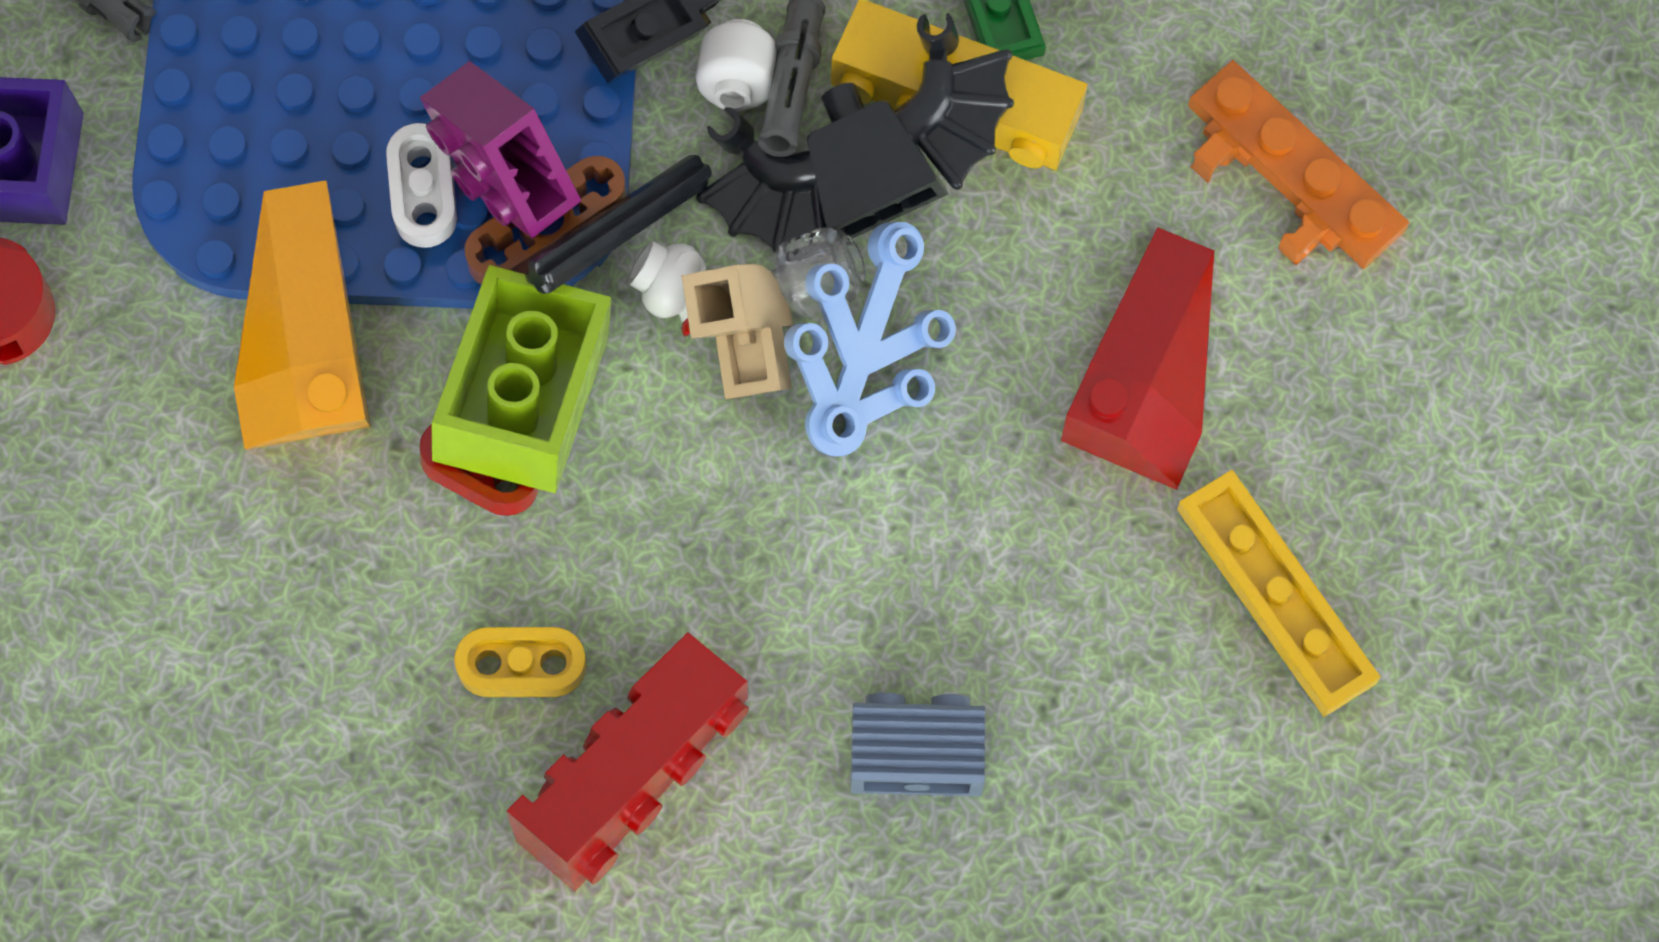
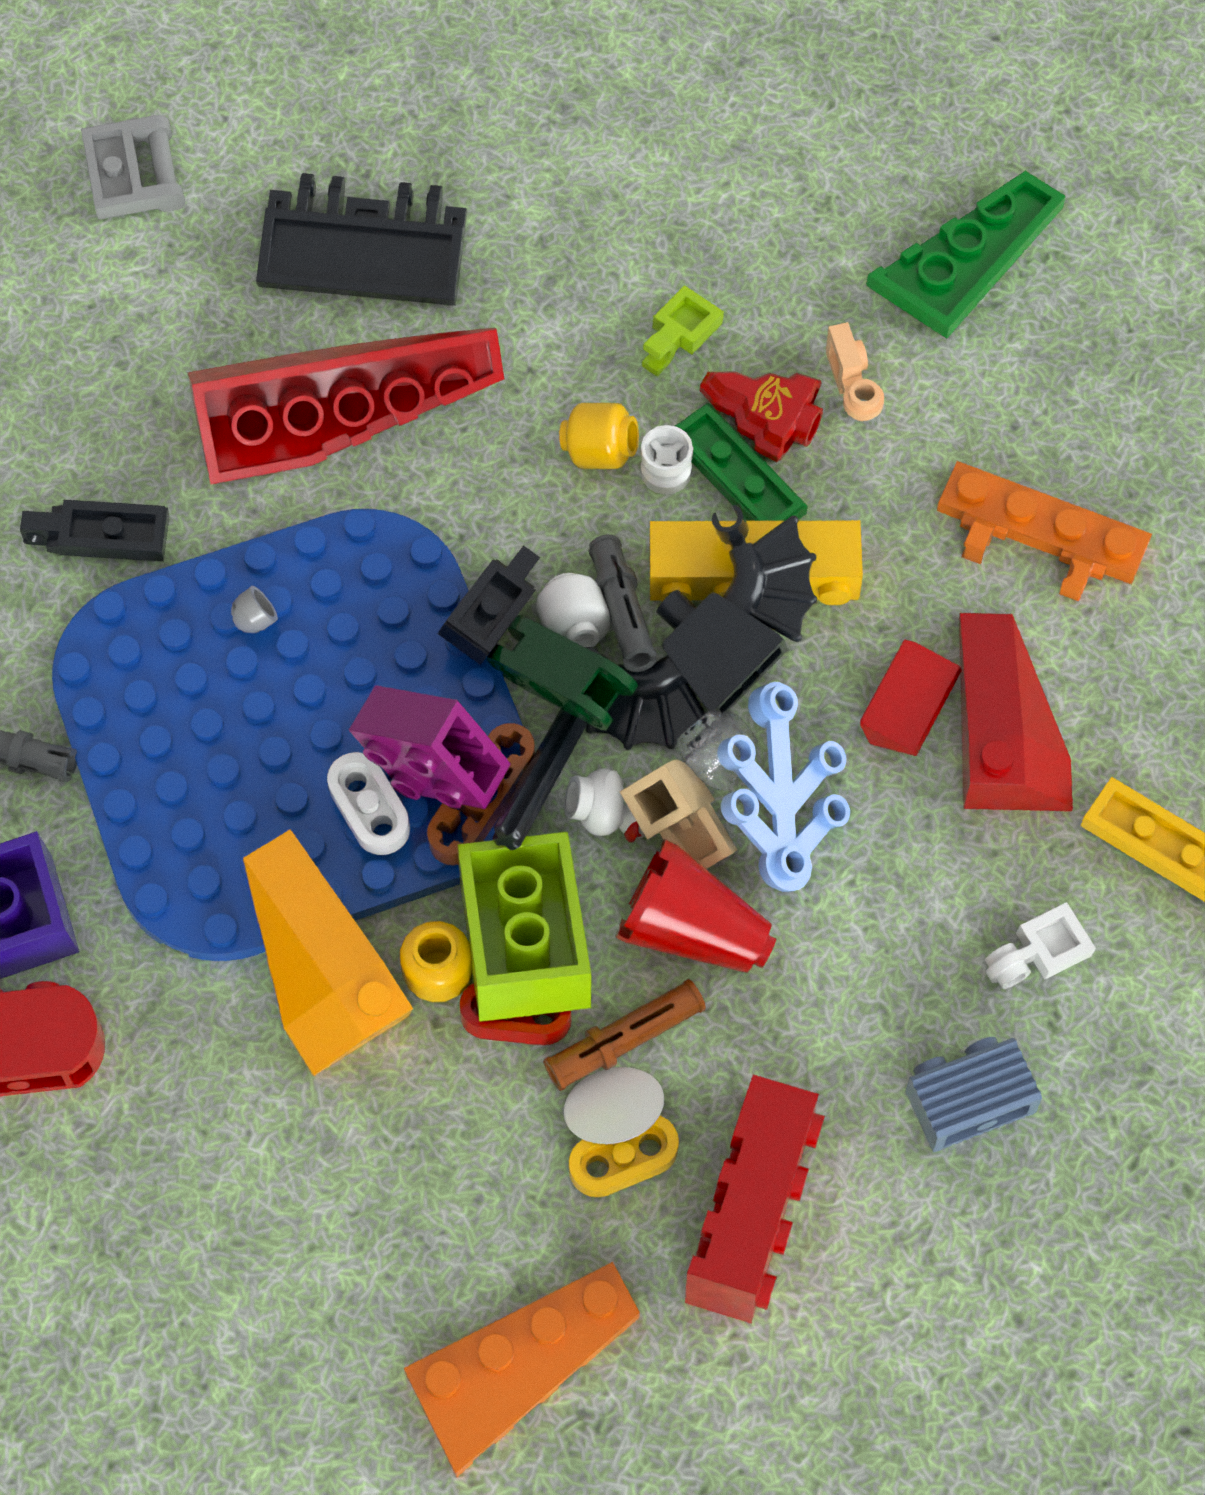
camera: 20 degrees left, 5 degrees down
(306, 831) = (504, 1370): none -> orange wing
(412, 377) = (436, 961): none -> yellow head
(534, 605) = (613, 1105): none -> white sticker
(581, 536) = (573, 1061): none -> dark orange pin
(688, 125) = (562, 672): none -> dark green piece
(708, 439) = (694, 915): none -> red cone
(1053, 298) = (909, 699): none -> red slope
(1082, 621) = (1050, 941): none -> white plate

